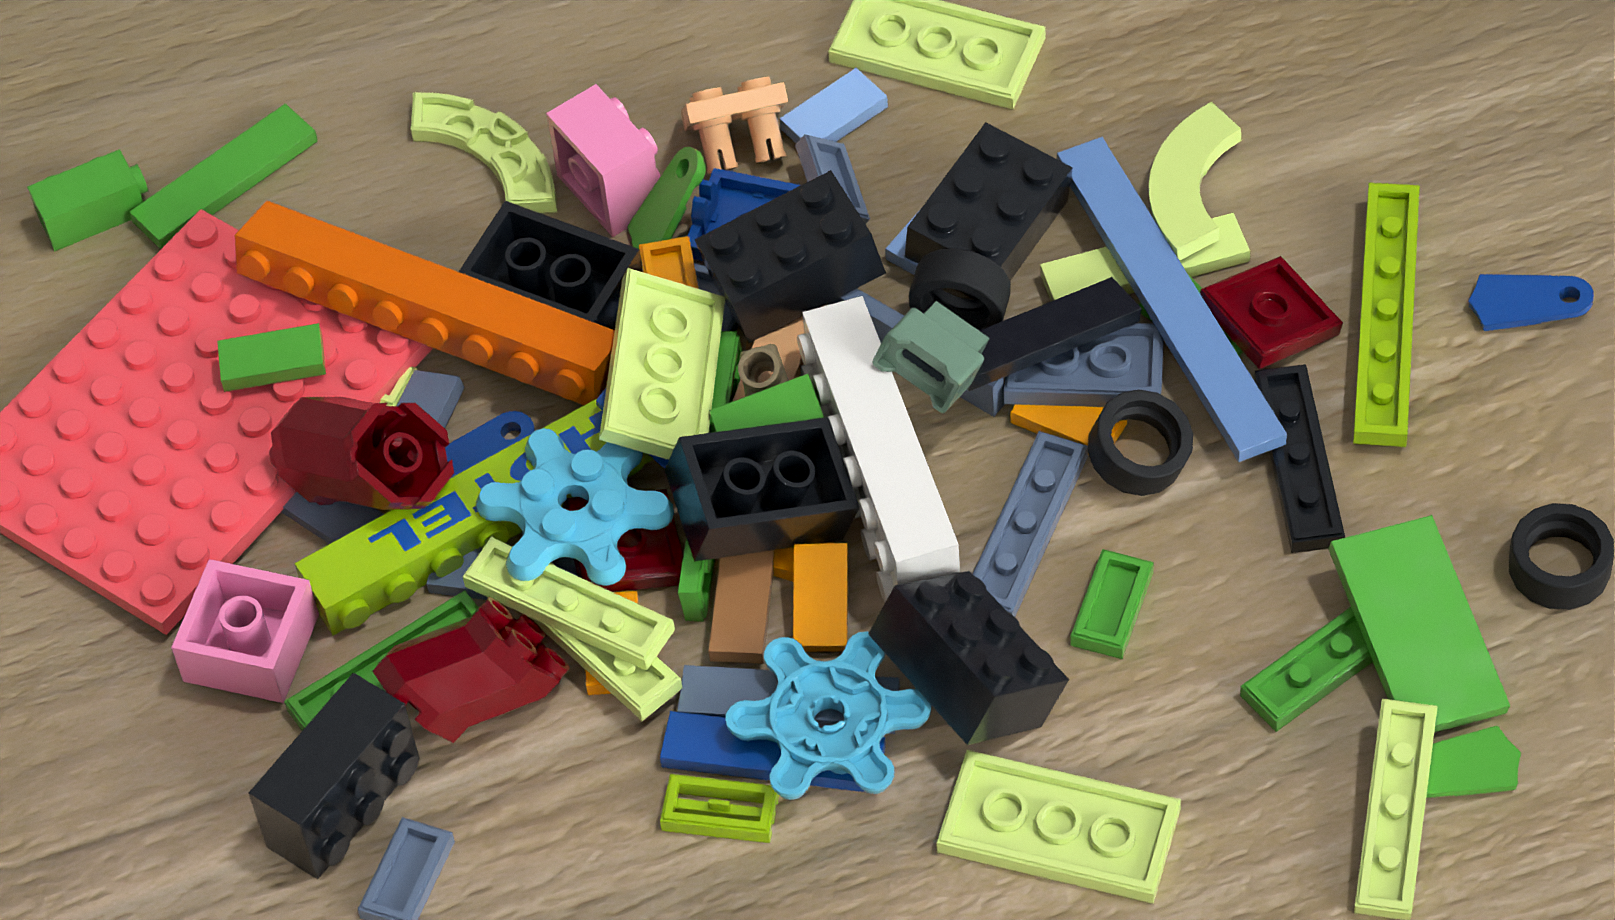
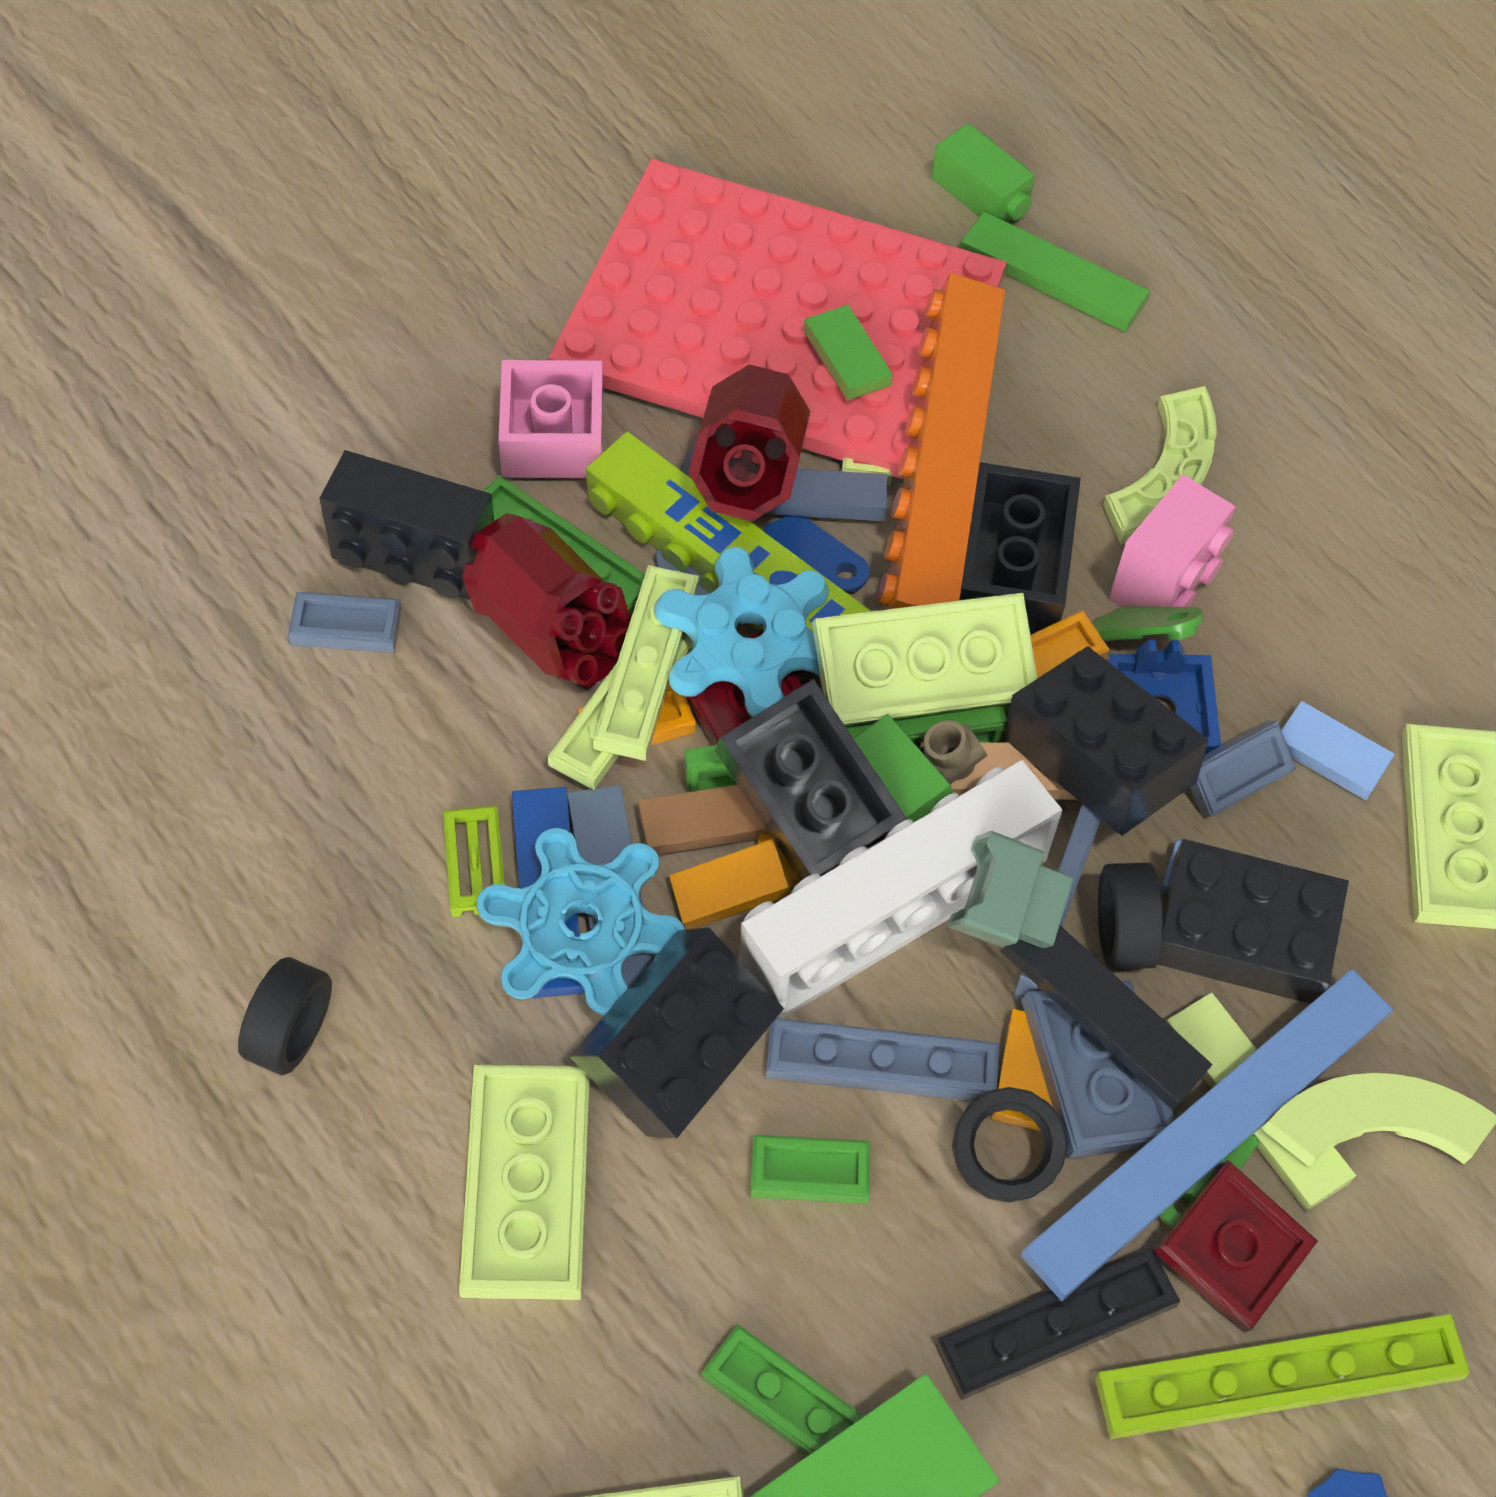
camera: 65 degrees right, 5 degrees up
(755, 102) = (1296, 664): light nougat plate -> none

